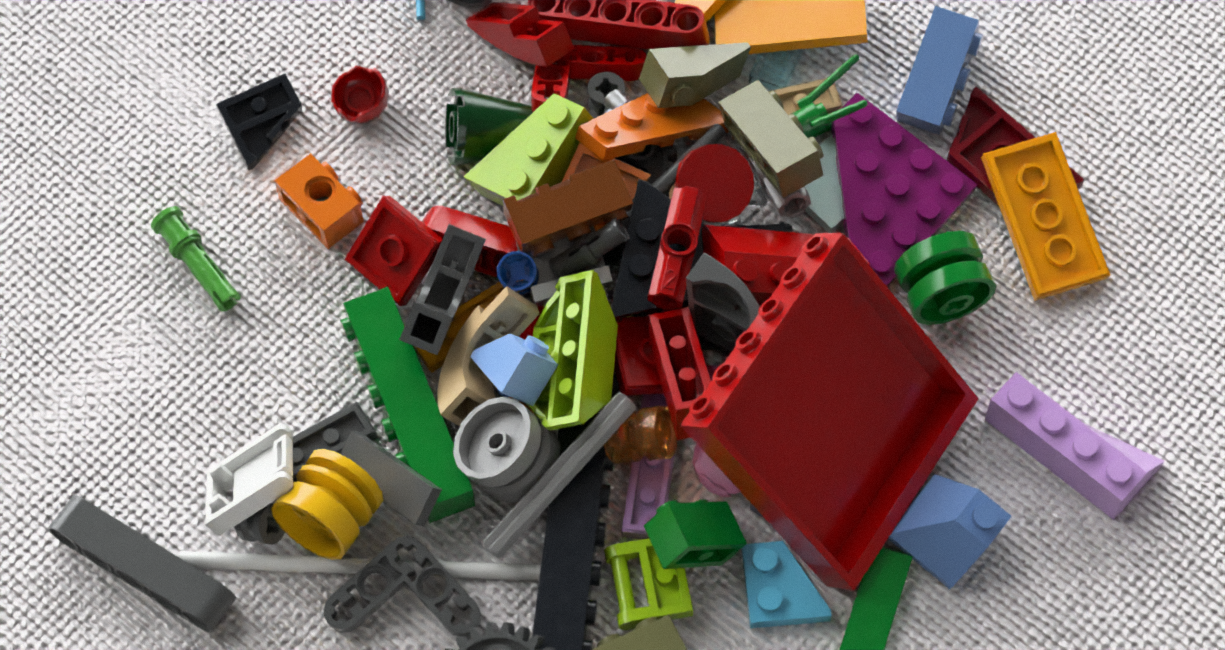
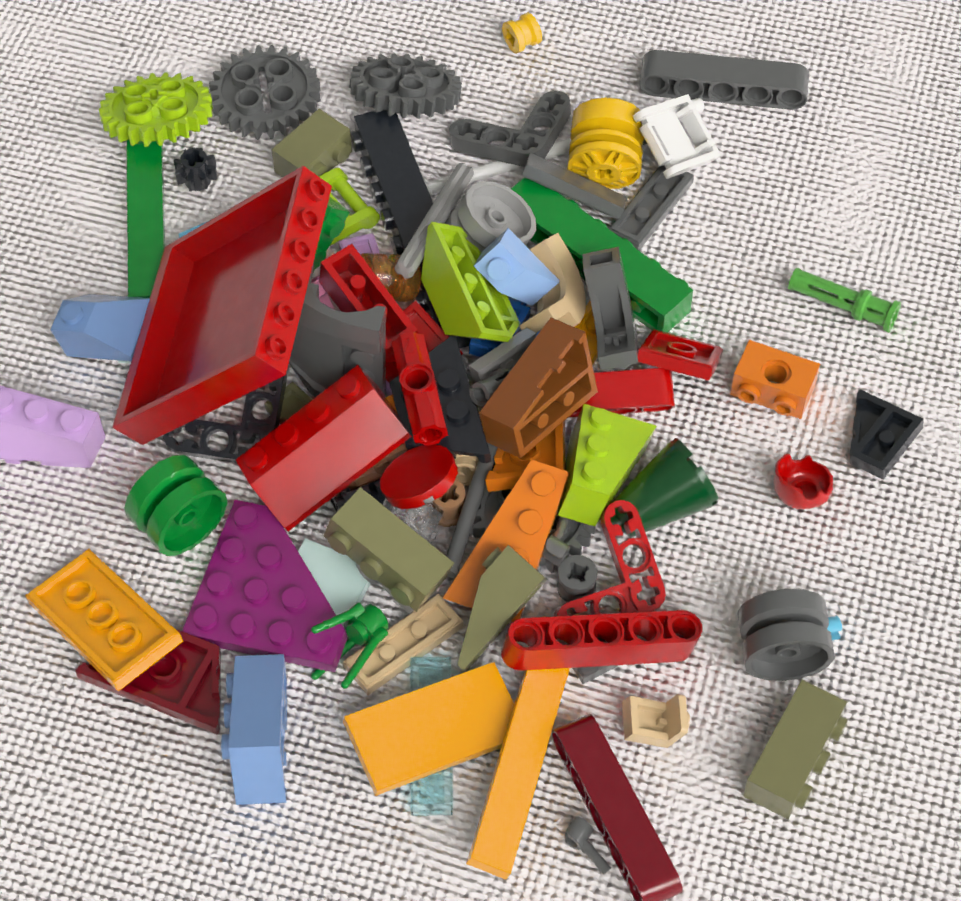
camera: 155 degrees right, 5 degrees down
(522, 32) = (693, 590): red slope -> none

